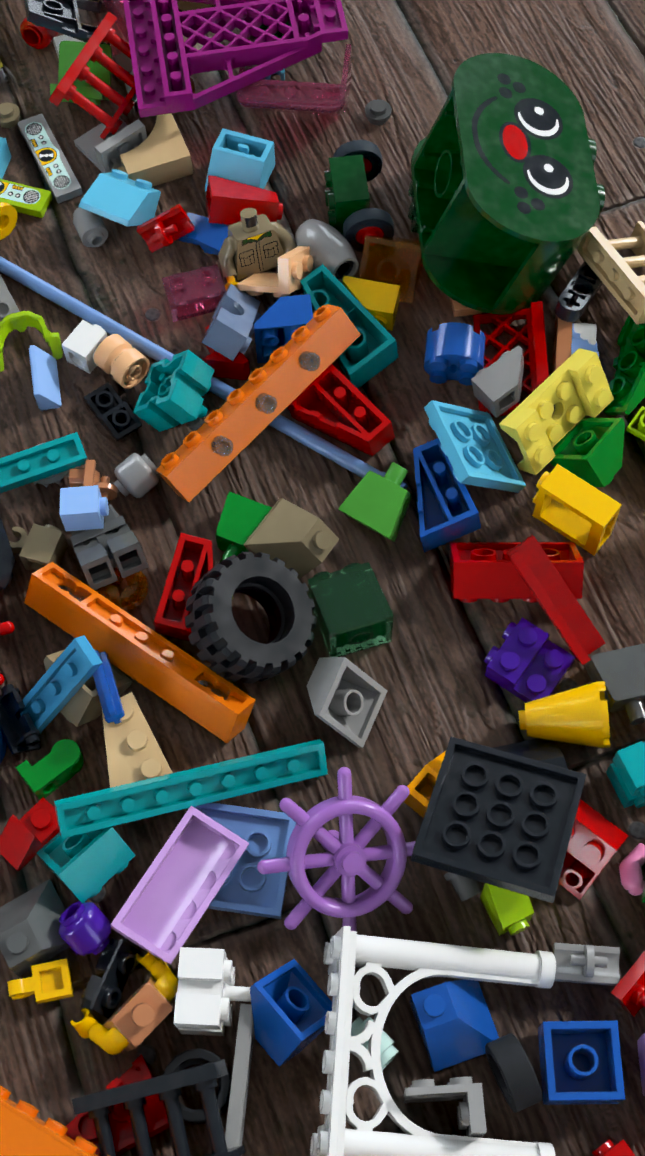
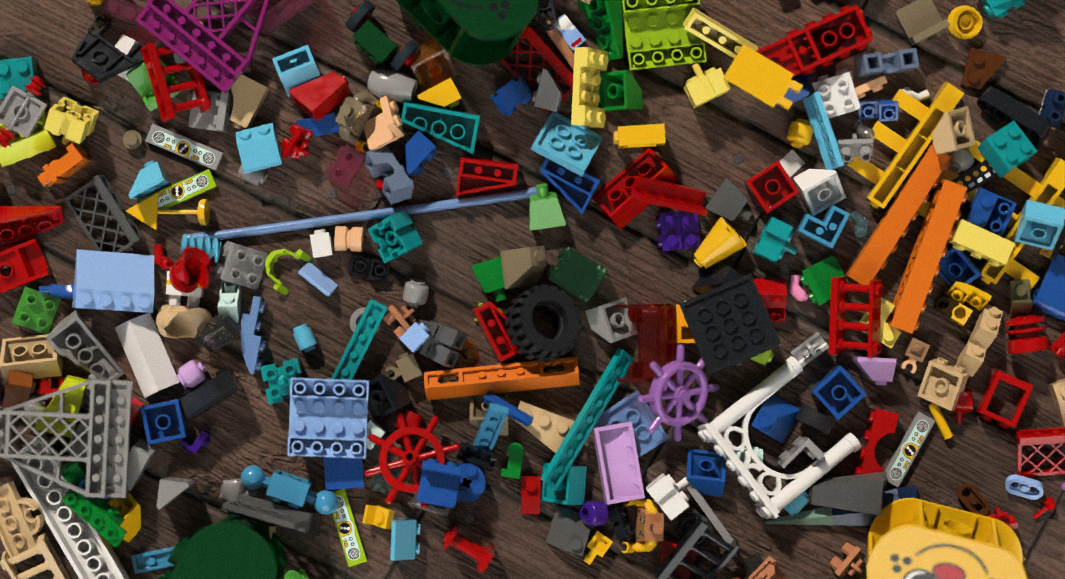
camera: 40 degrees left, 25 degrees up
(258, 401) = (444, 208): orange piece -> none
(389, 759) = (655, 339): none -> clear red windscreen

